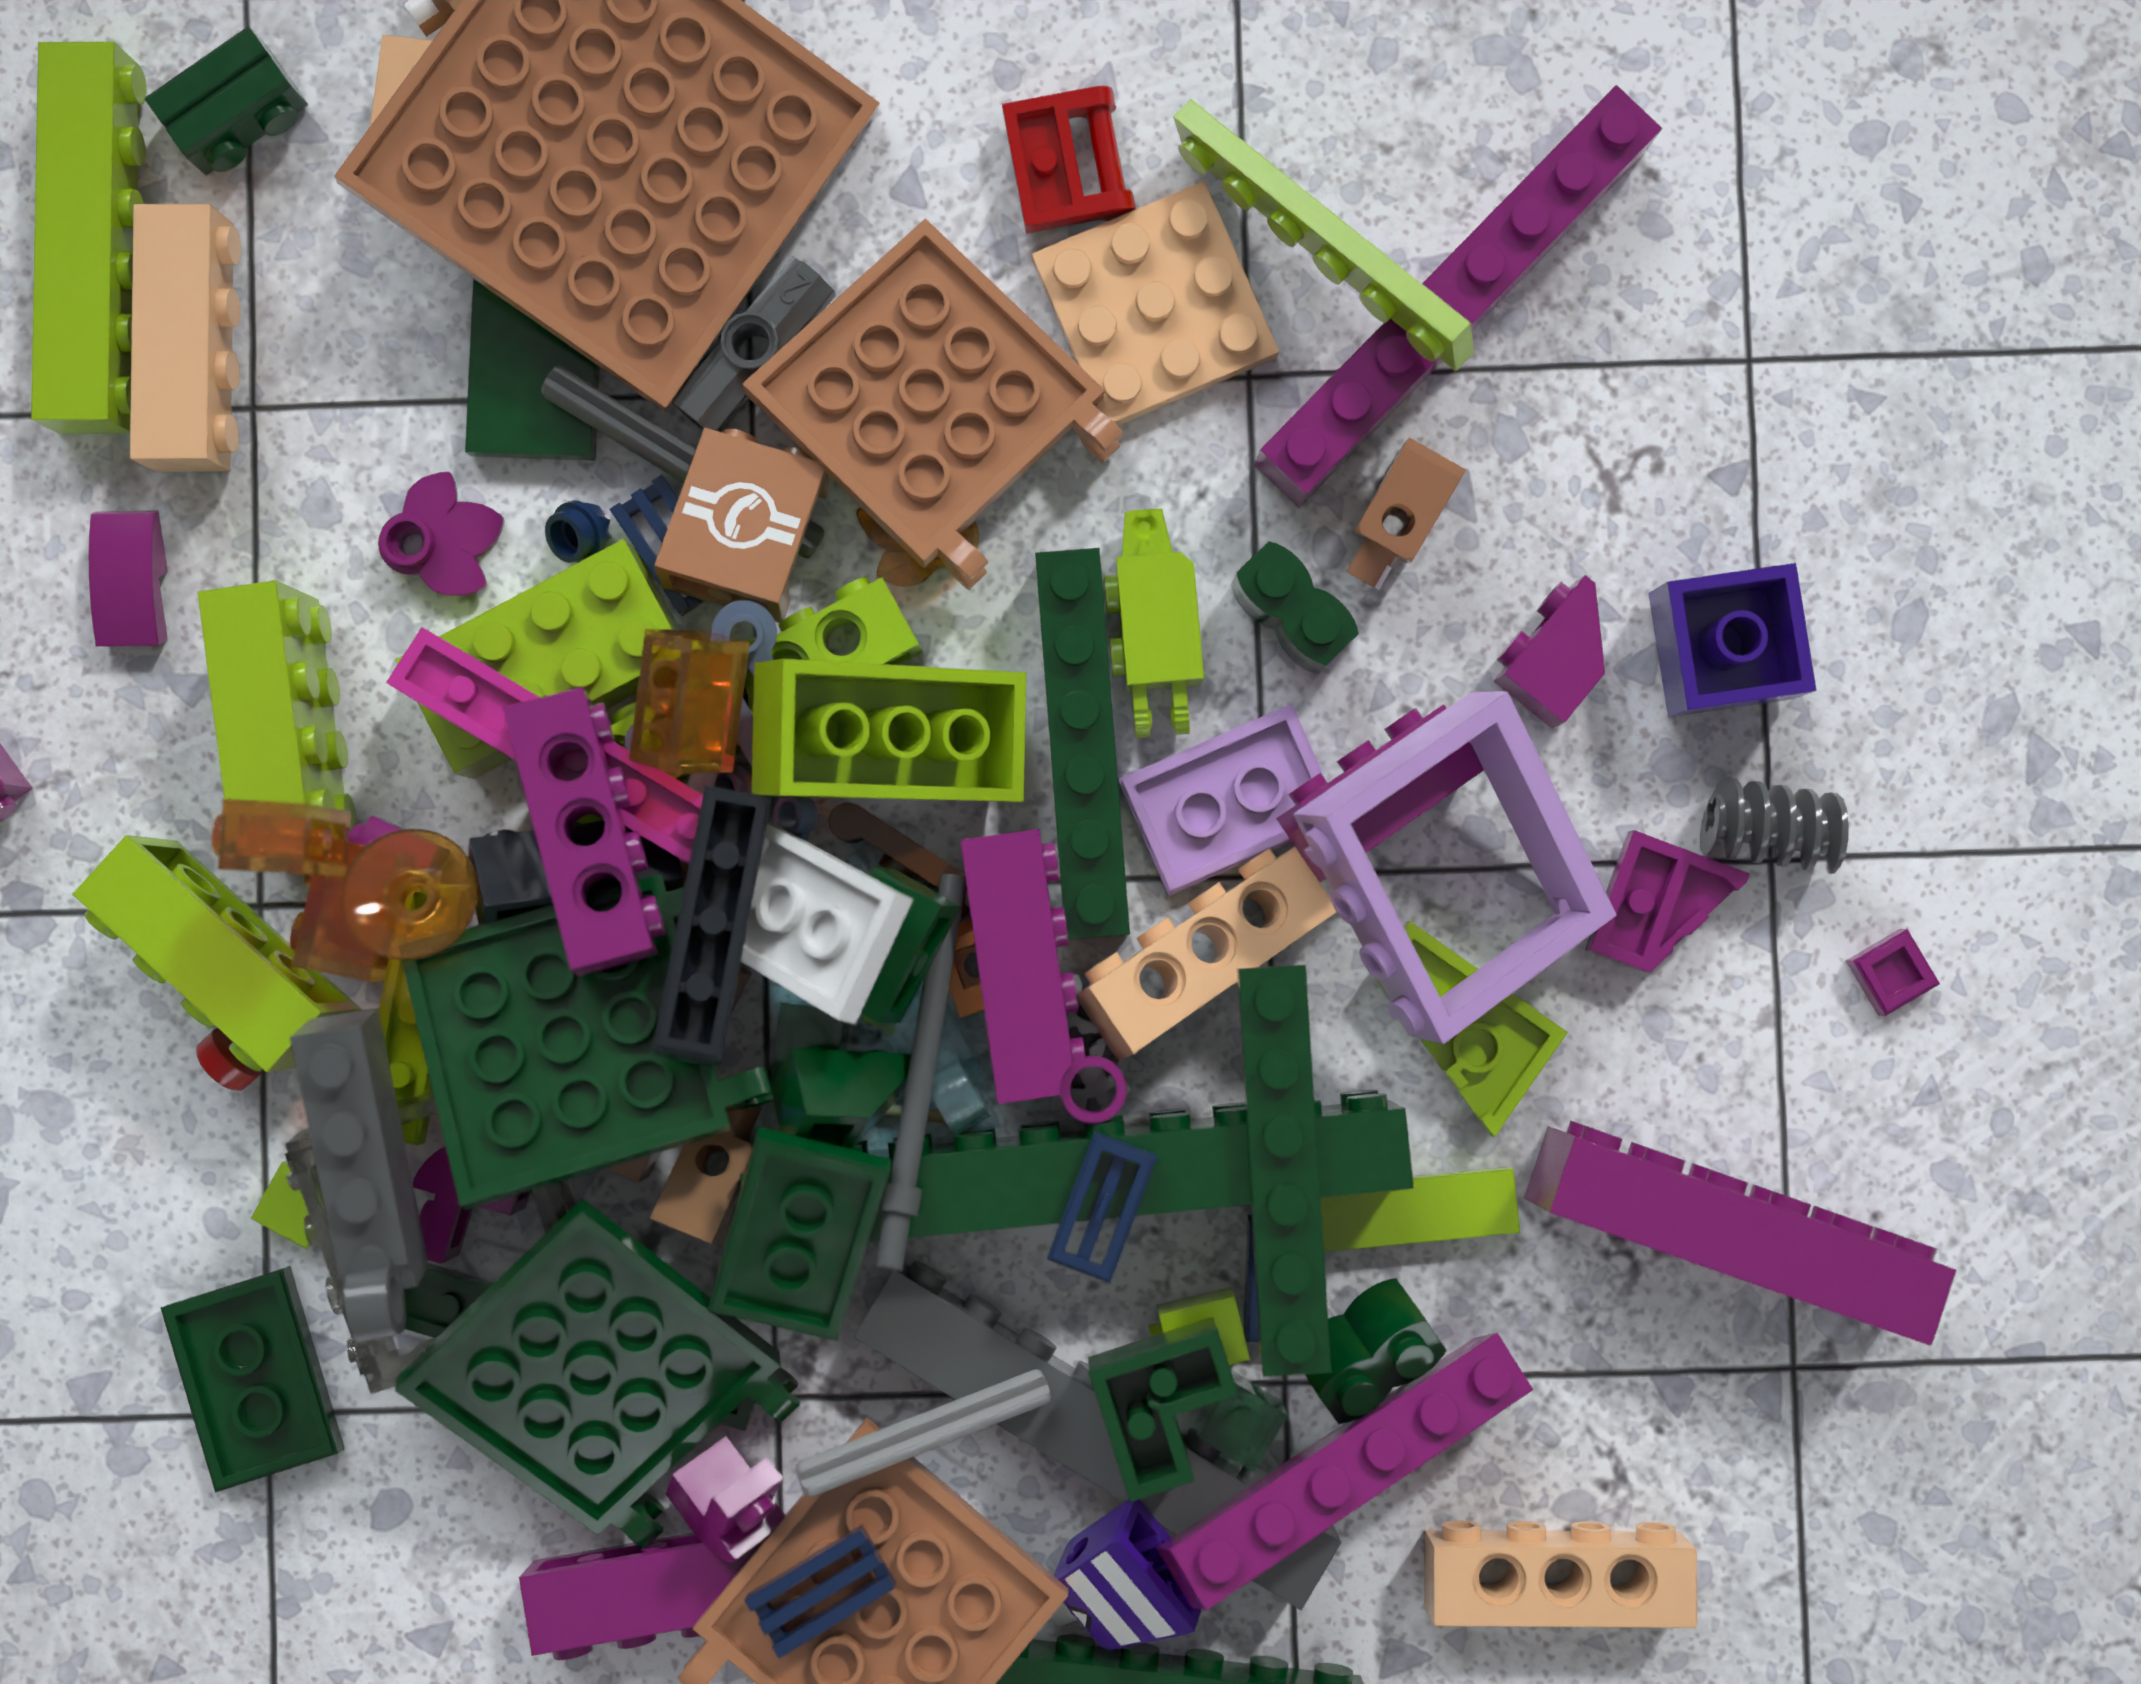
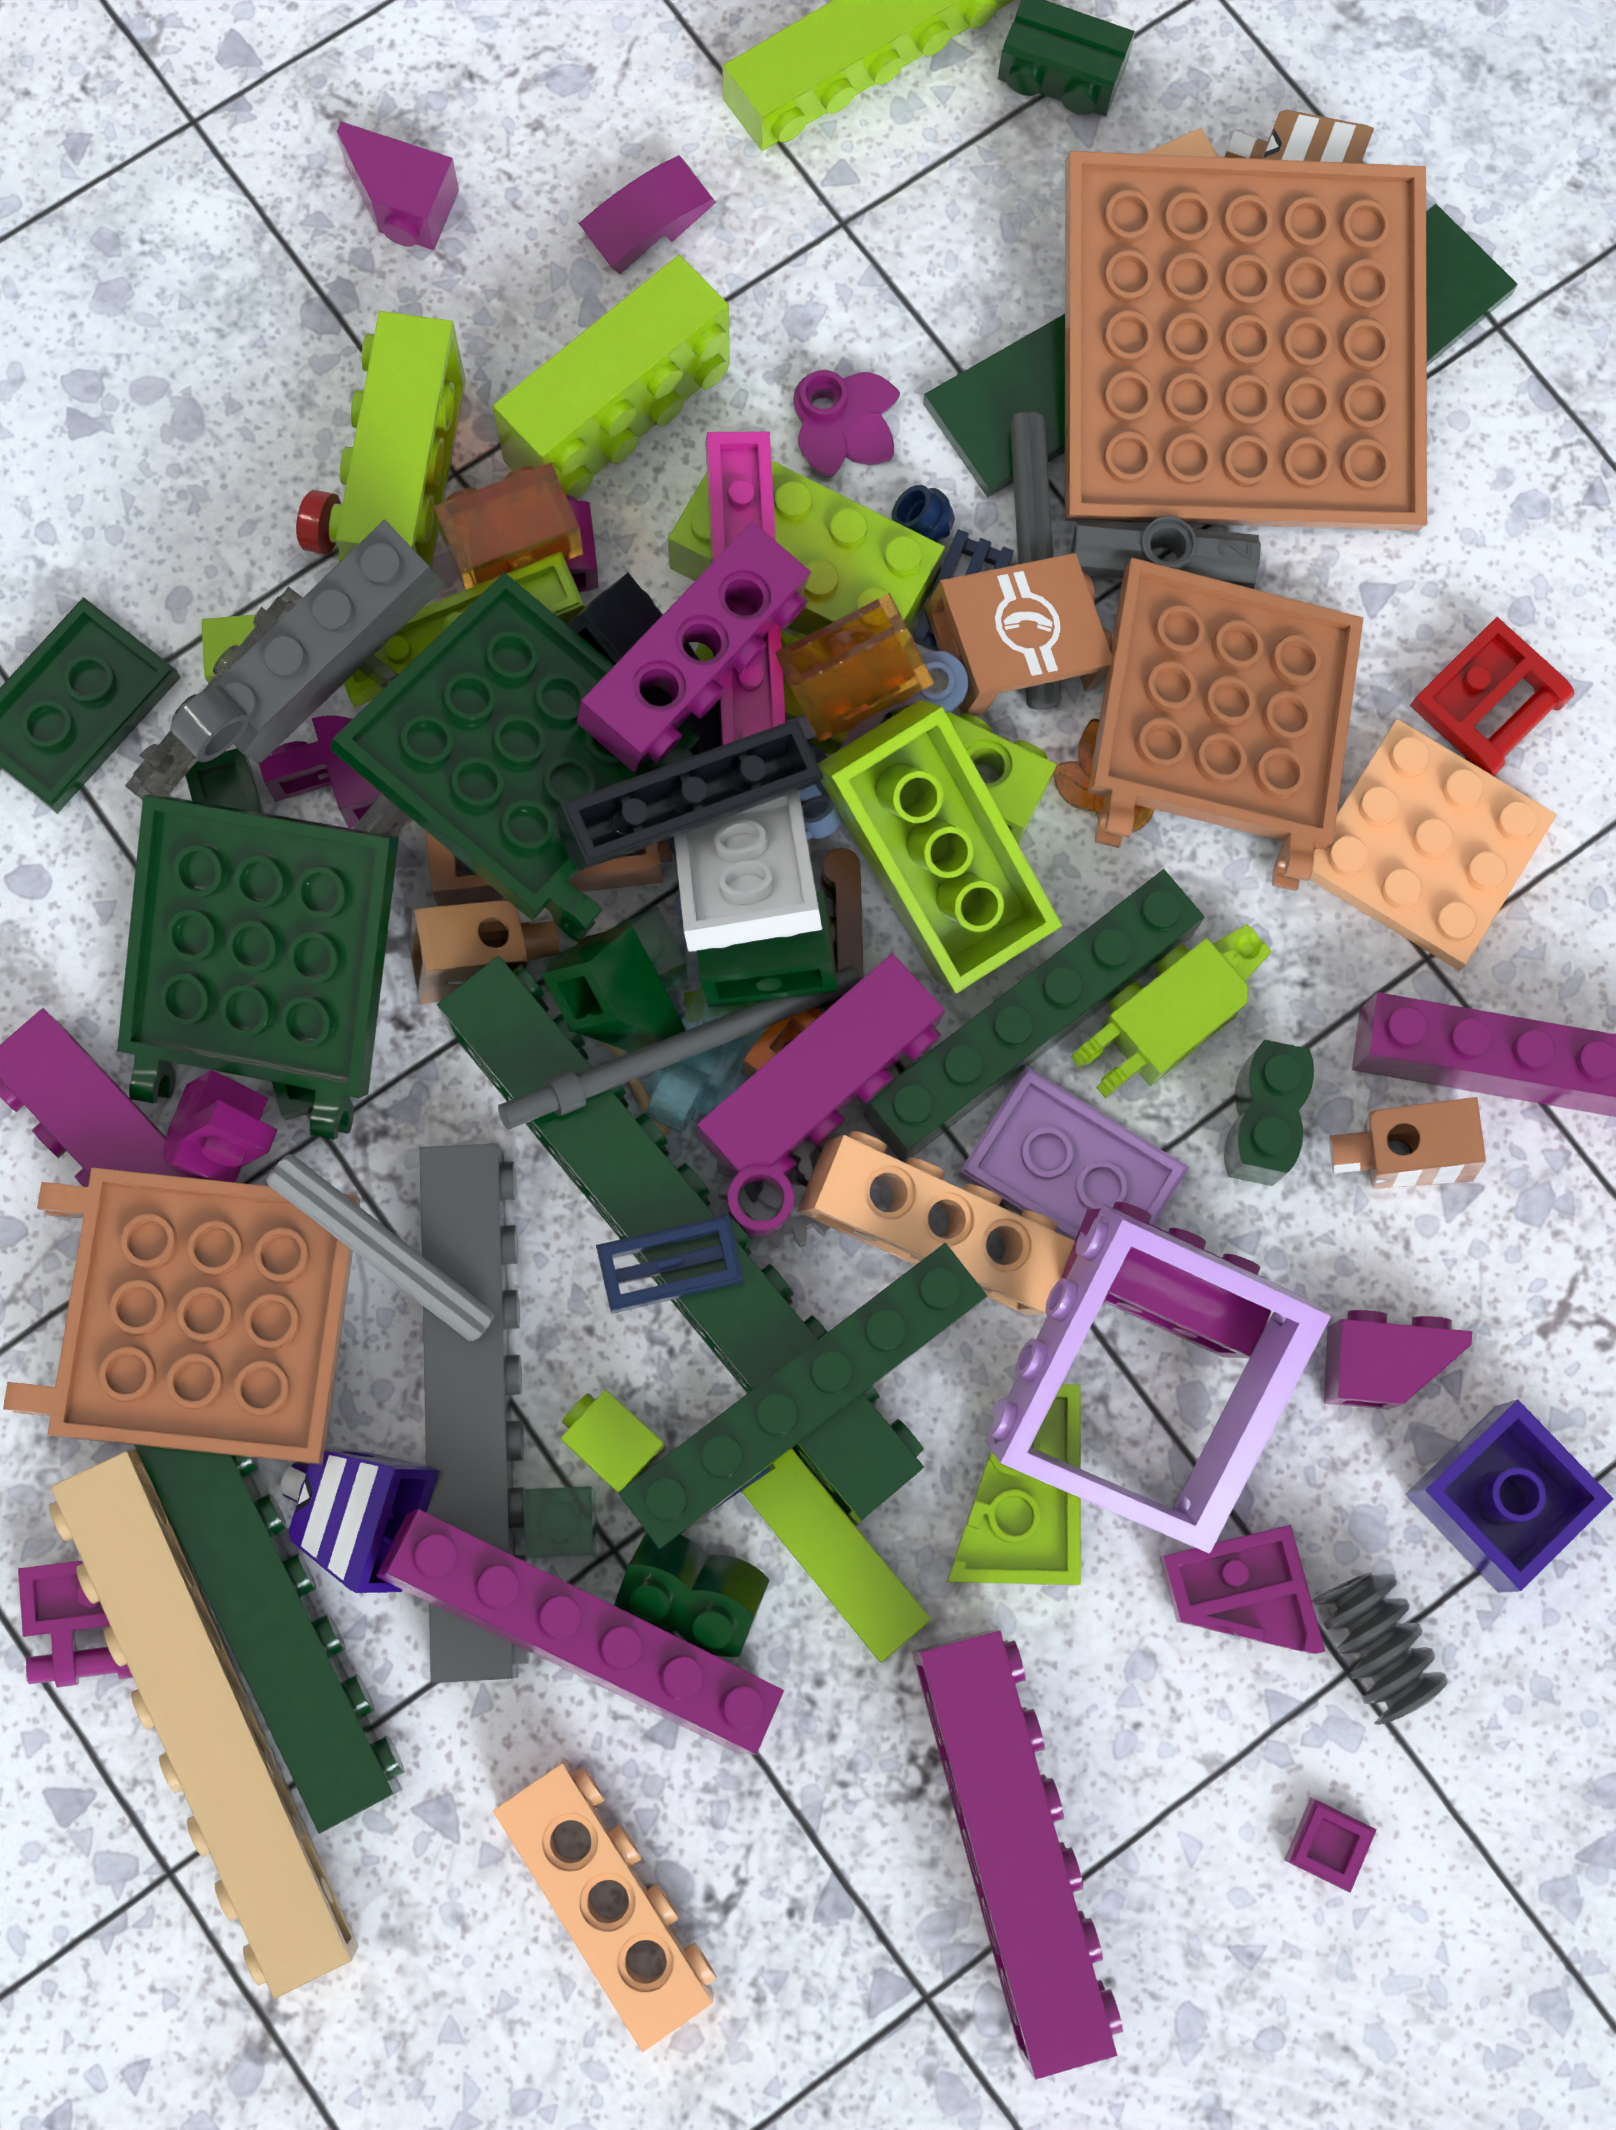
camera: 45 degrees right, 10 degrees down
(183, 338) = (862, 135): light nougat brick -> none
(281, 838) = (534, 425): clear orange brick -> none
(392, 870) = (556, 531): clear orange dish -> none
(772, 1621) = (141, 1224): dark blue tile -> none
(799, 1234) = (481, 1030): dark green tile -> none
(1144, 1390) = (532, 1407): dark green brick -> none
(1335, 246) = (1584, 939): lime plate -> none

